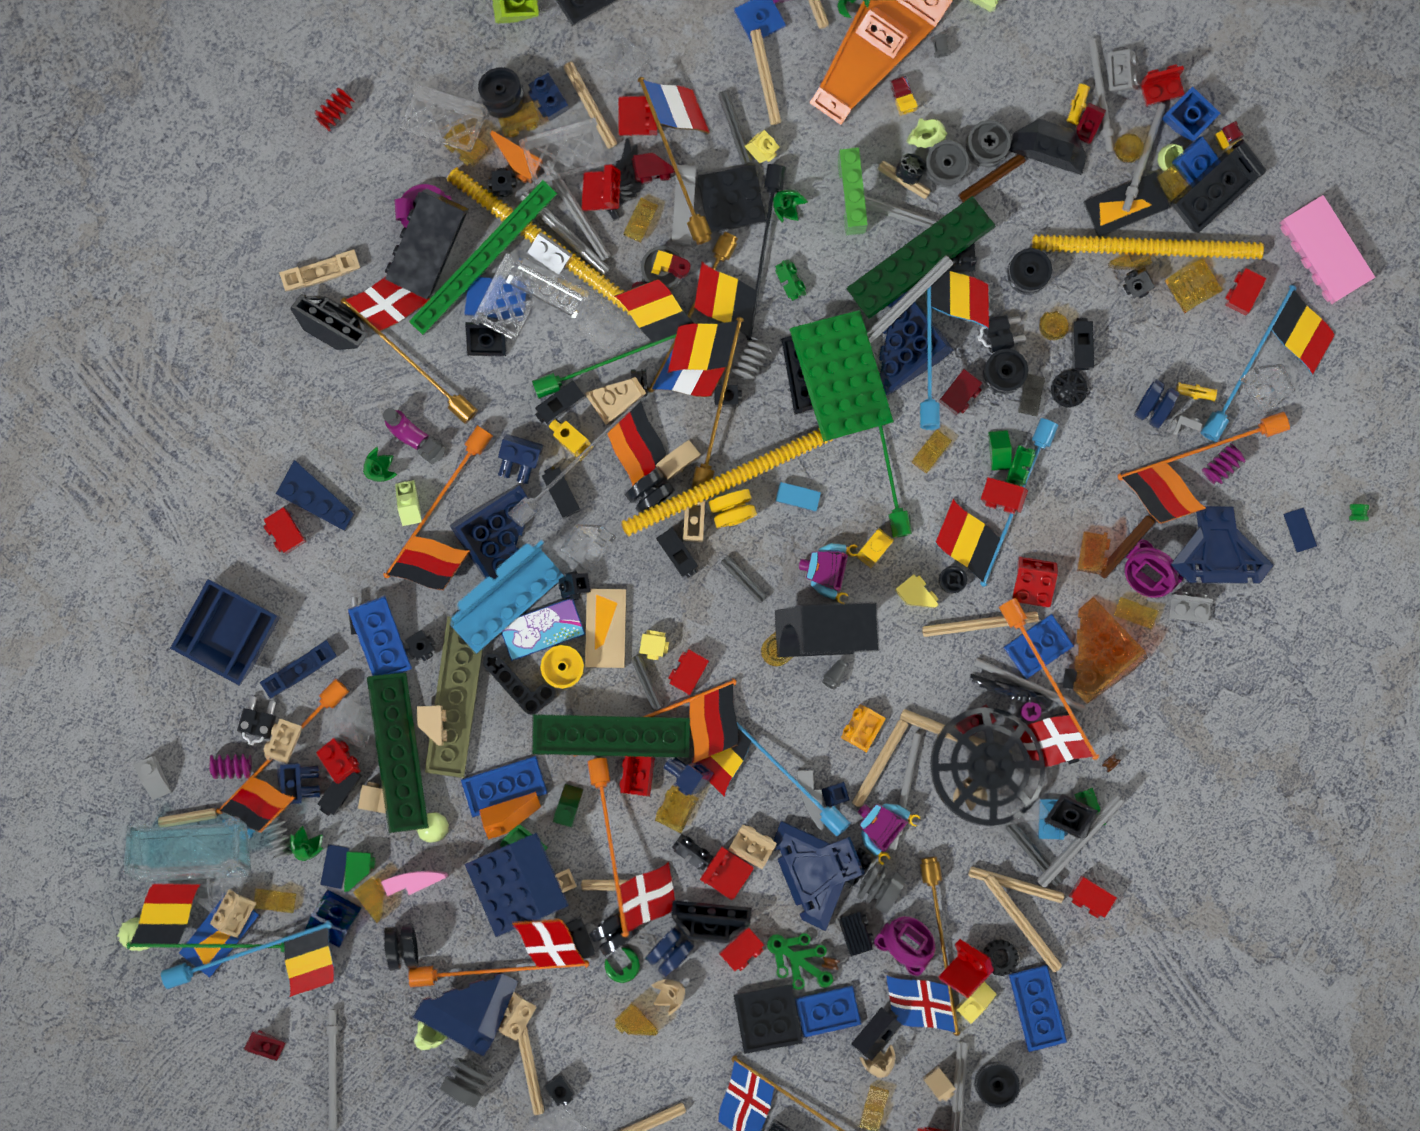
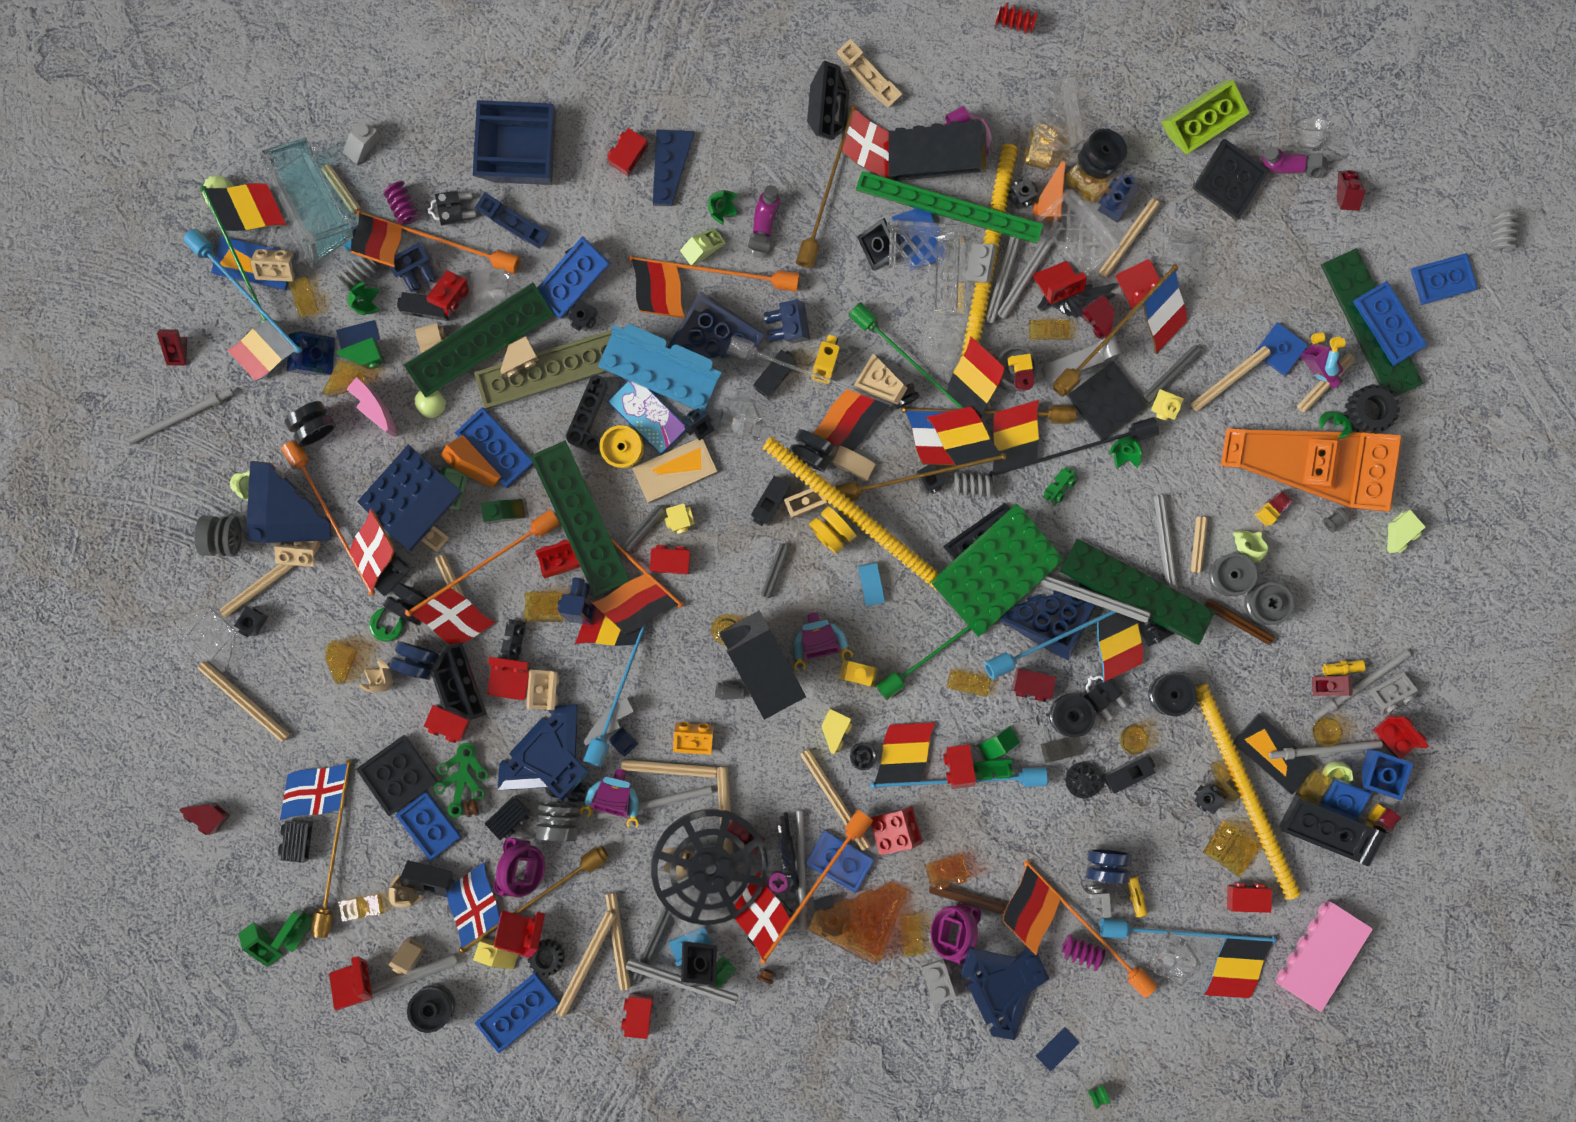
camera: 65 degrees right, 0 degrees up
(283, 741) = (442, 236): tan bracket -> none
(559, 403) = (853, 335): black brick -> none
(851, 174) = (1167, 502): bright green arch -> none
(909, 169) = (1211, 545): black wheel -> none
(1050, 145) = (1294, 660): black wedge -> none

